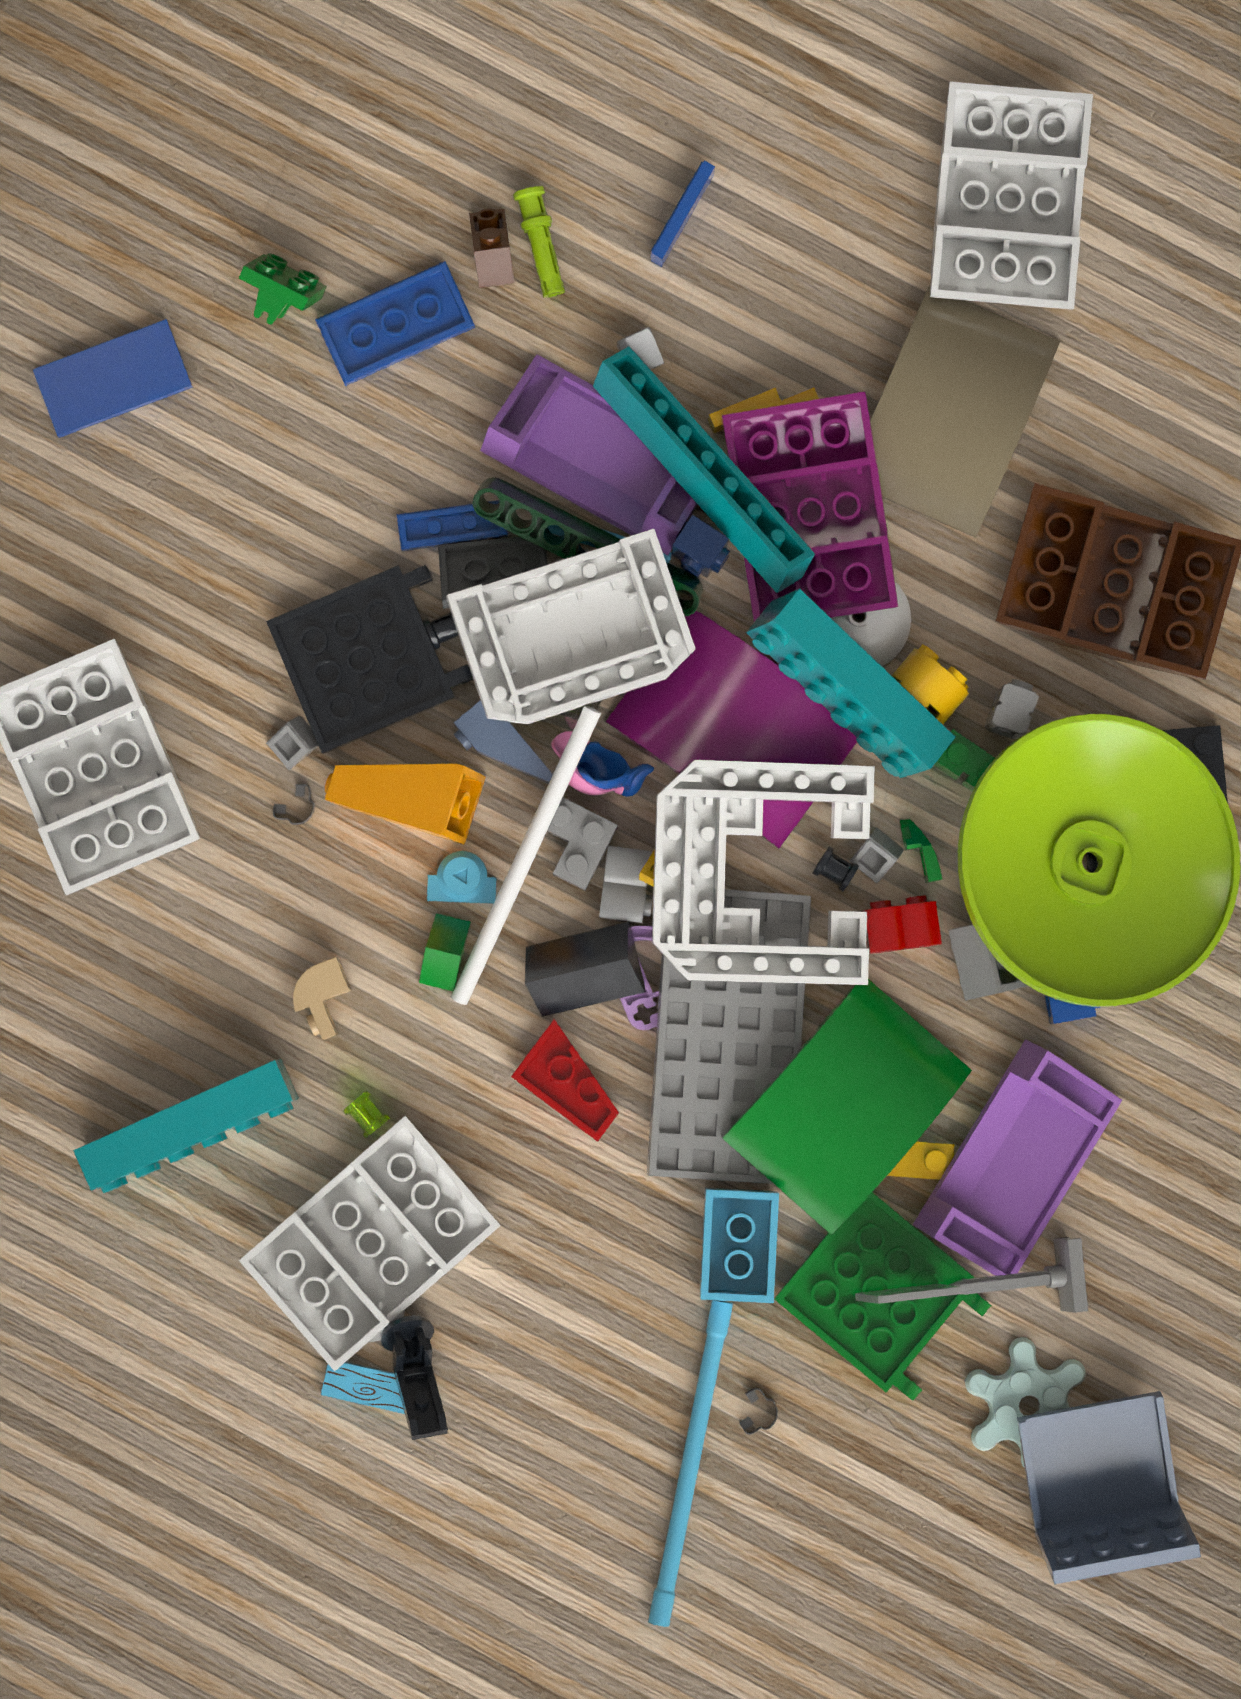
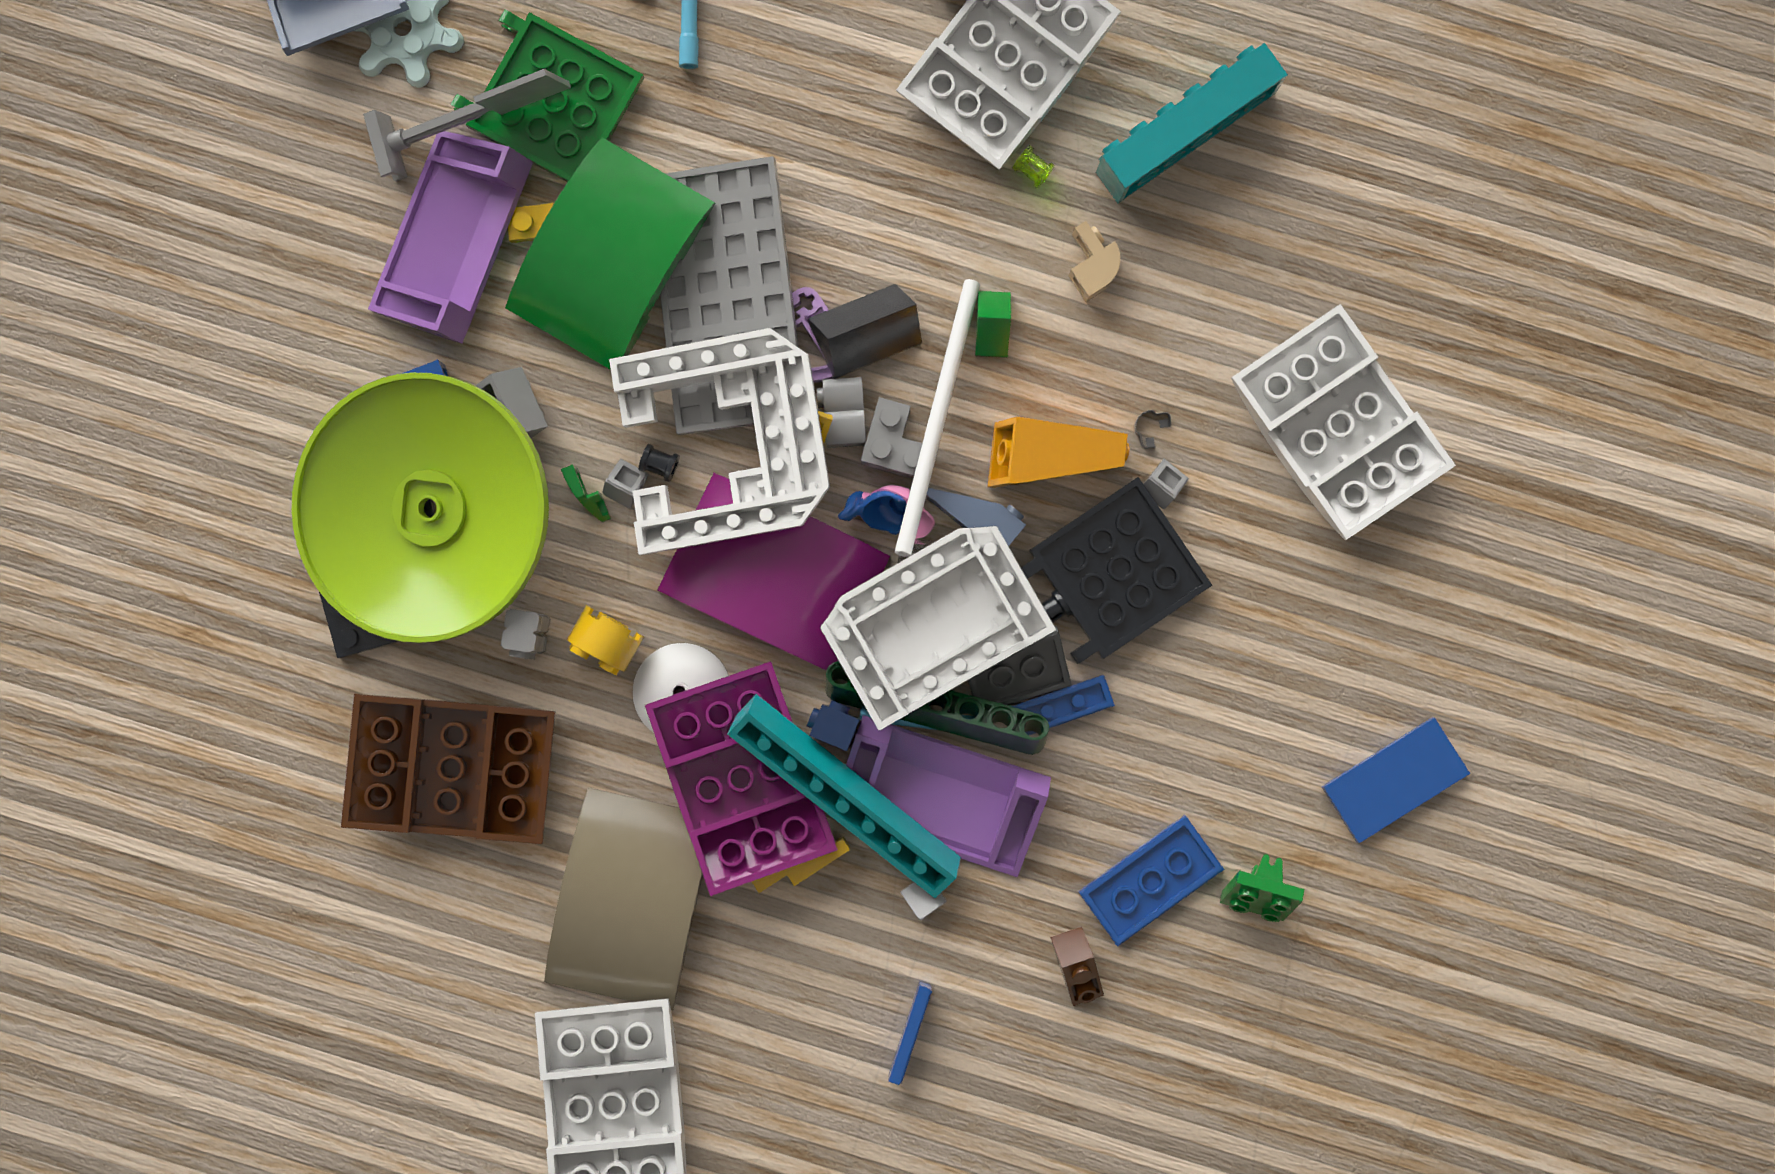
camera: 170 degrees right, 0 degrees up
(461, 879) = (990, 391): medium azure piece -> none
(537, 225) = (1040, 995): lime pin -> none
(565, 1083) = (863, 228): red wing -> none
(739, 1245) = (682, 113): medium azure brick -> none
(850, 684) = (674, 624): teal brick -> none
(902, 926) = (590, 422): red brick -> none
(964, 757) = (562, 581): green piece -> none

